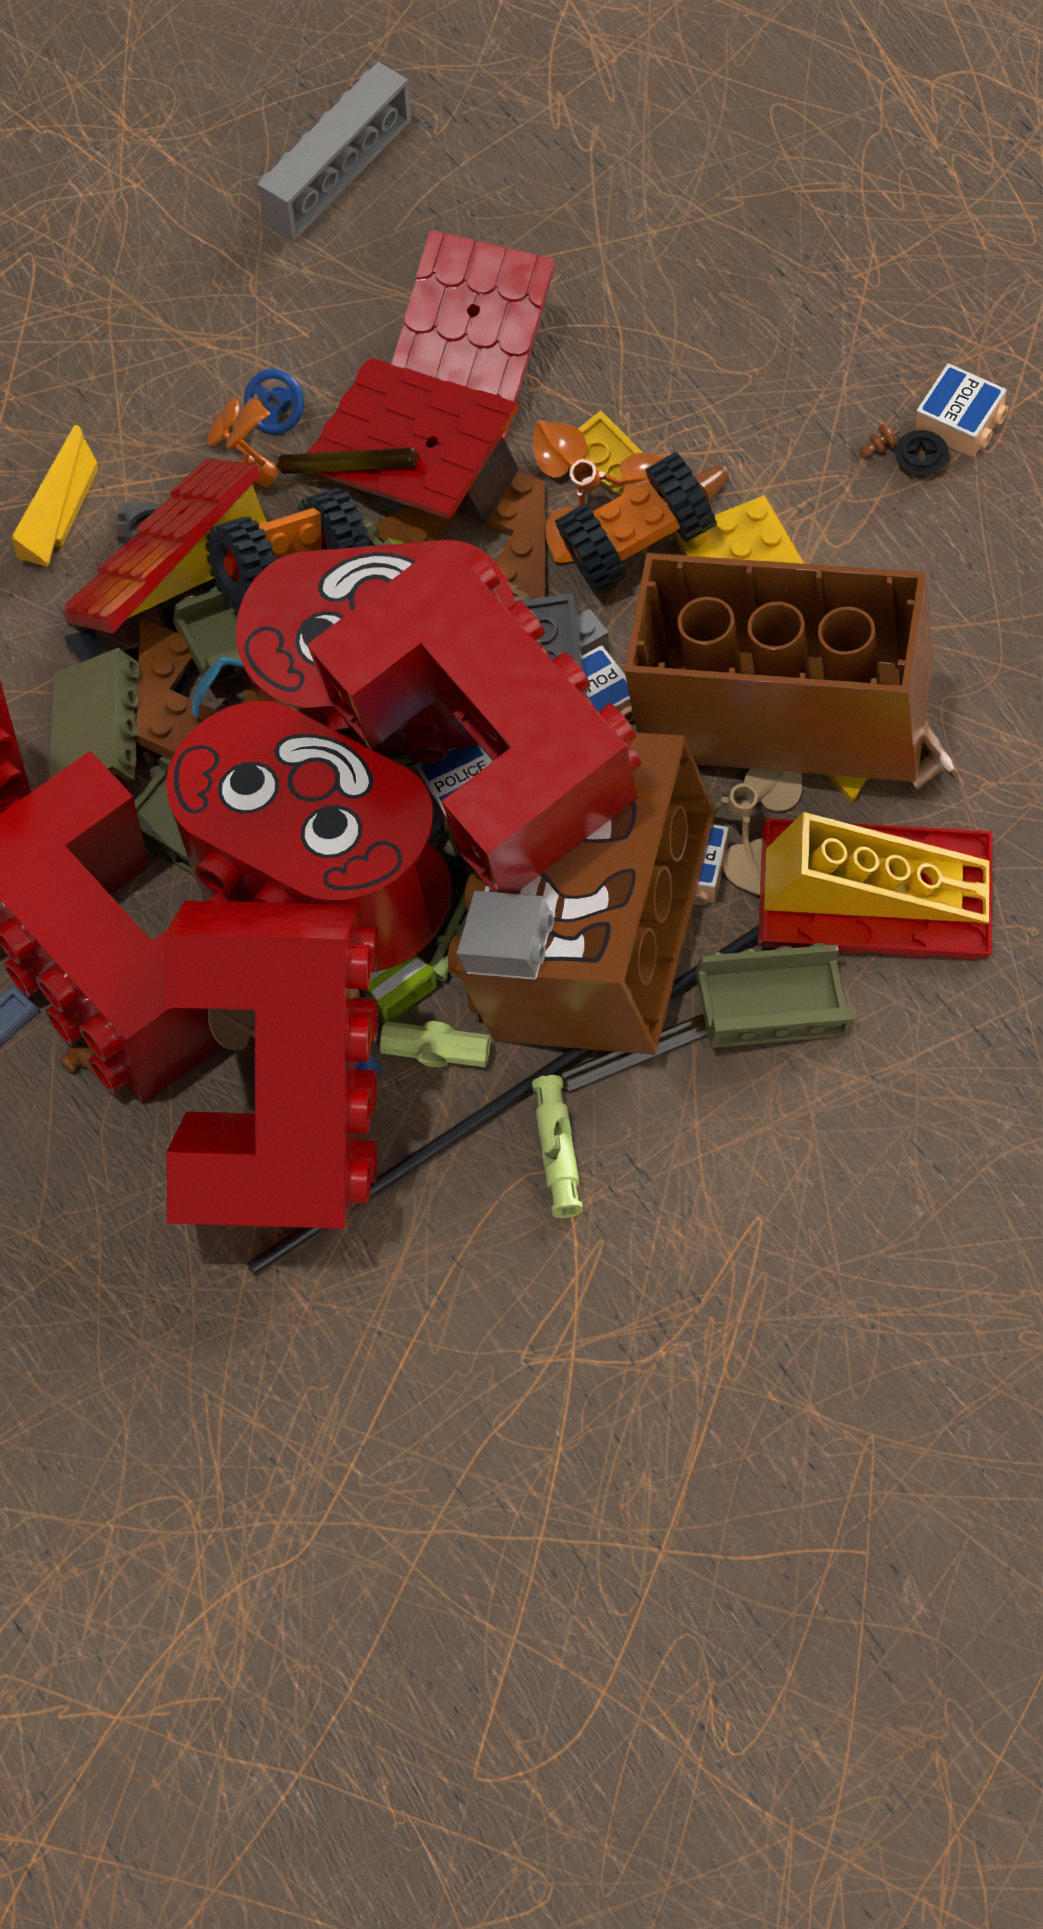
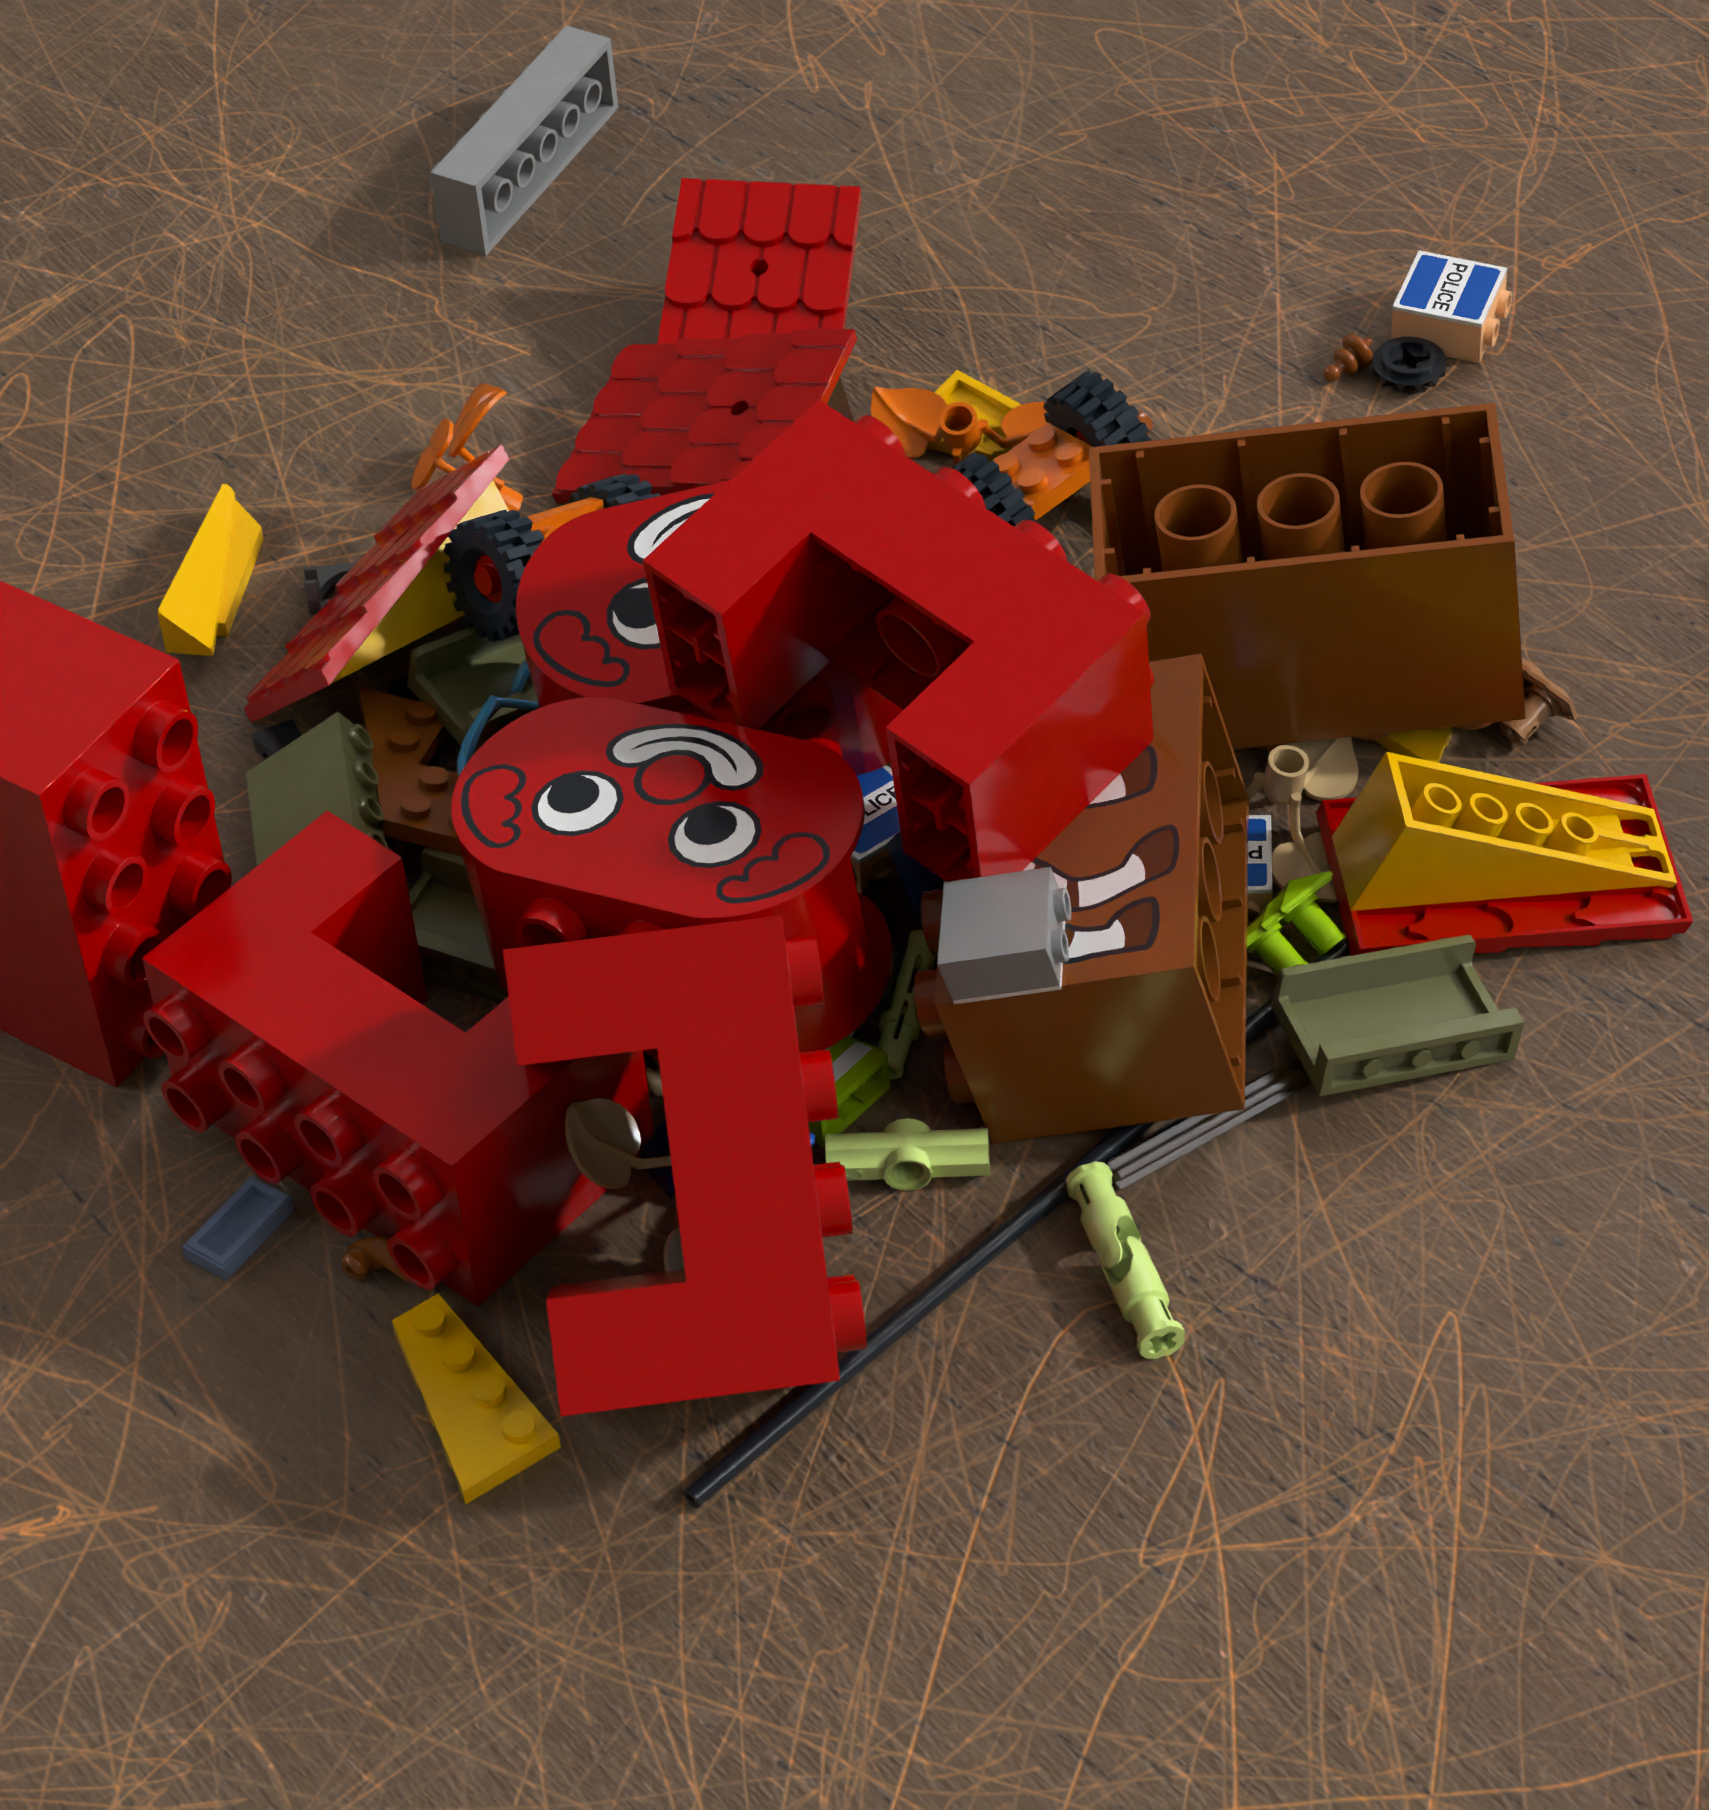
camera: 10 degrees left, 15 degrees down
(126, 1177) = (476, 1407): none -> yellow wing
(287, 399) = (516, 419): blue piece -> none
(347, 460) = (622, 458): dark brown axle -> none
(731, 900) = (1298, 906): none -> lime connector

